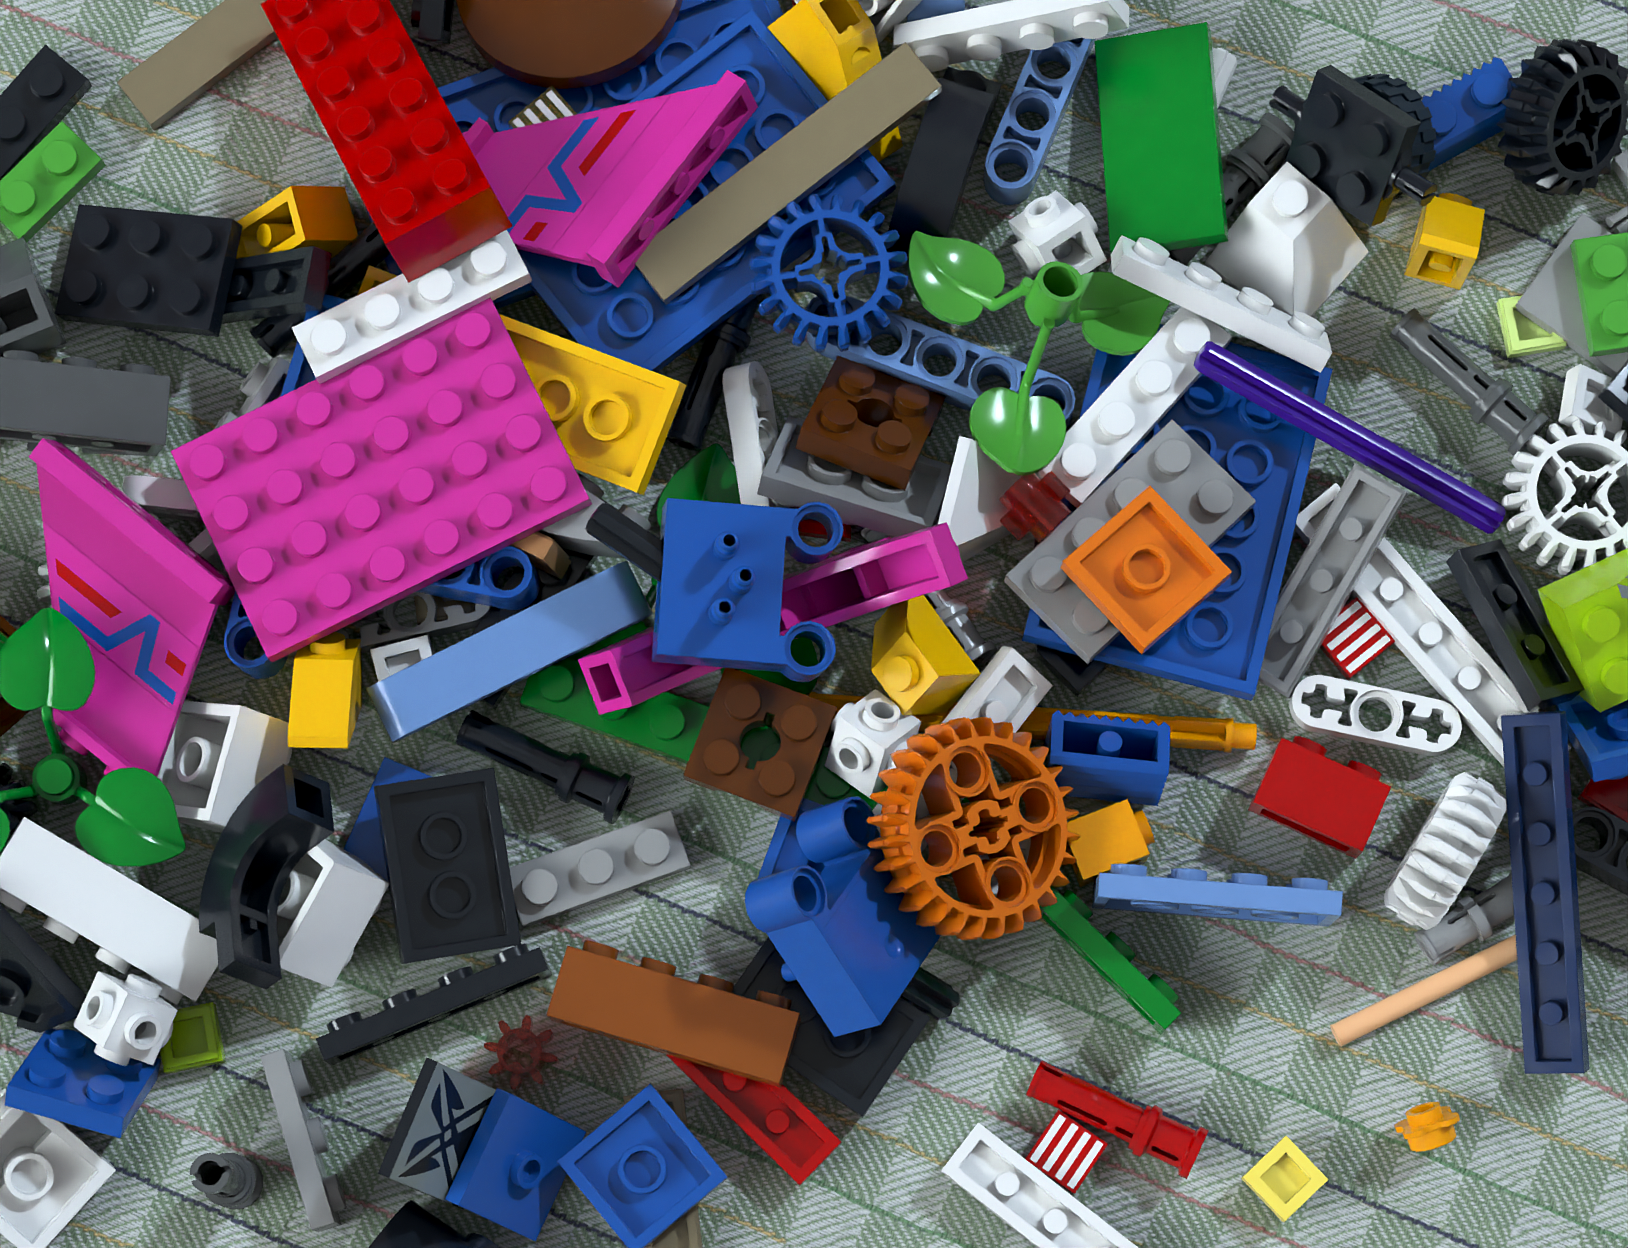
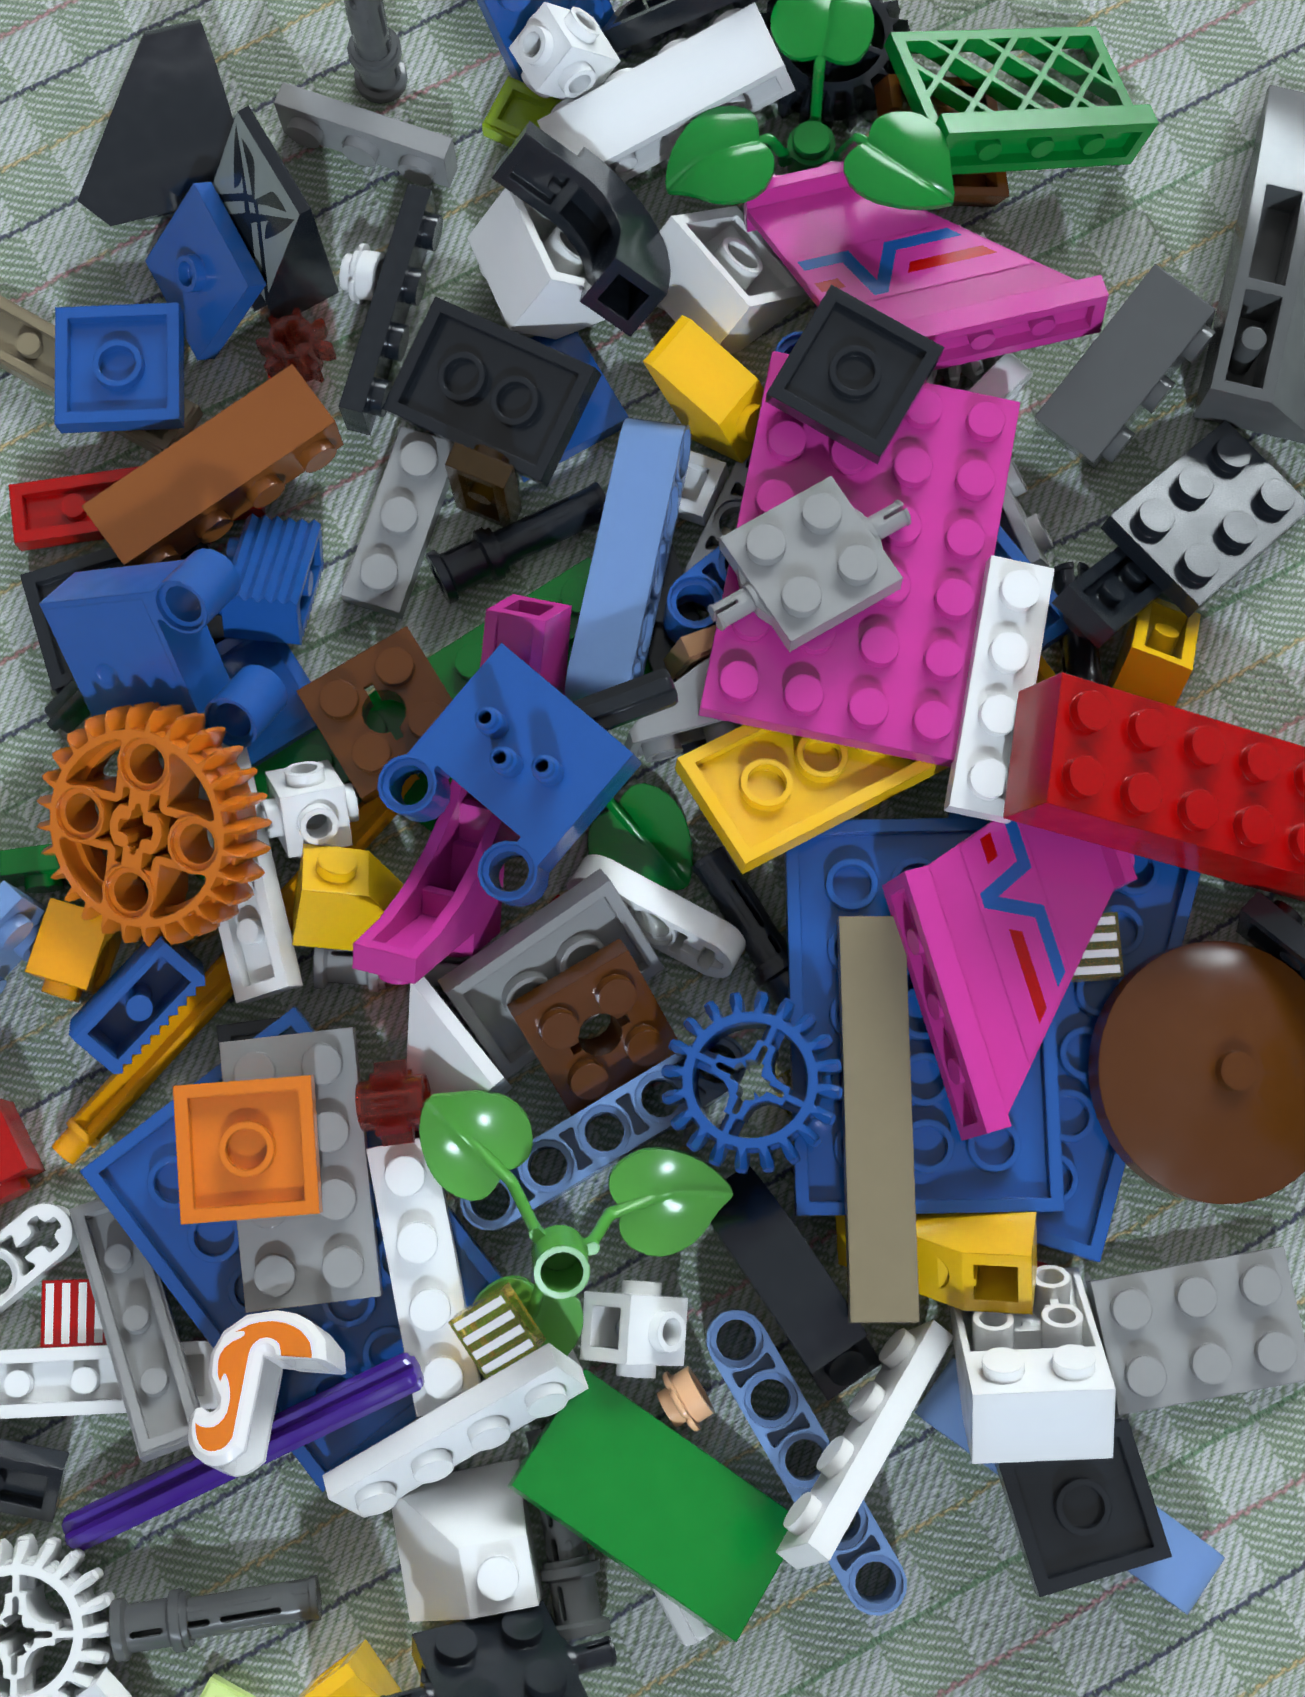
camera: 125 degrees right, 0 degrees up
(251, 568) = (854, 374): none -> black plate
(413, 1052) = (360, 273): none -> white plate
(423, 494) = (809, 564): none -> light grey plate
(524, 808) = (484, 483): none -> dark brown plate
(711, 916) = (278, 579): none -> blue brick
(1077, 177) = (685, 1399): none -> light nougat plate
(1132, 318) = (497, 1331): none -> clear yellow tile
(1299, 460) = (247, 1381): none -> white animal

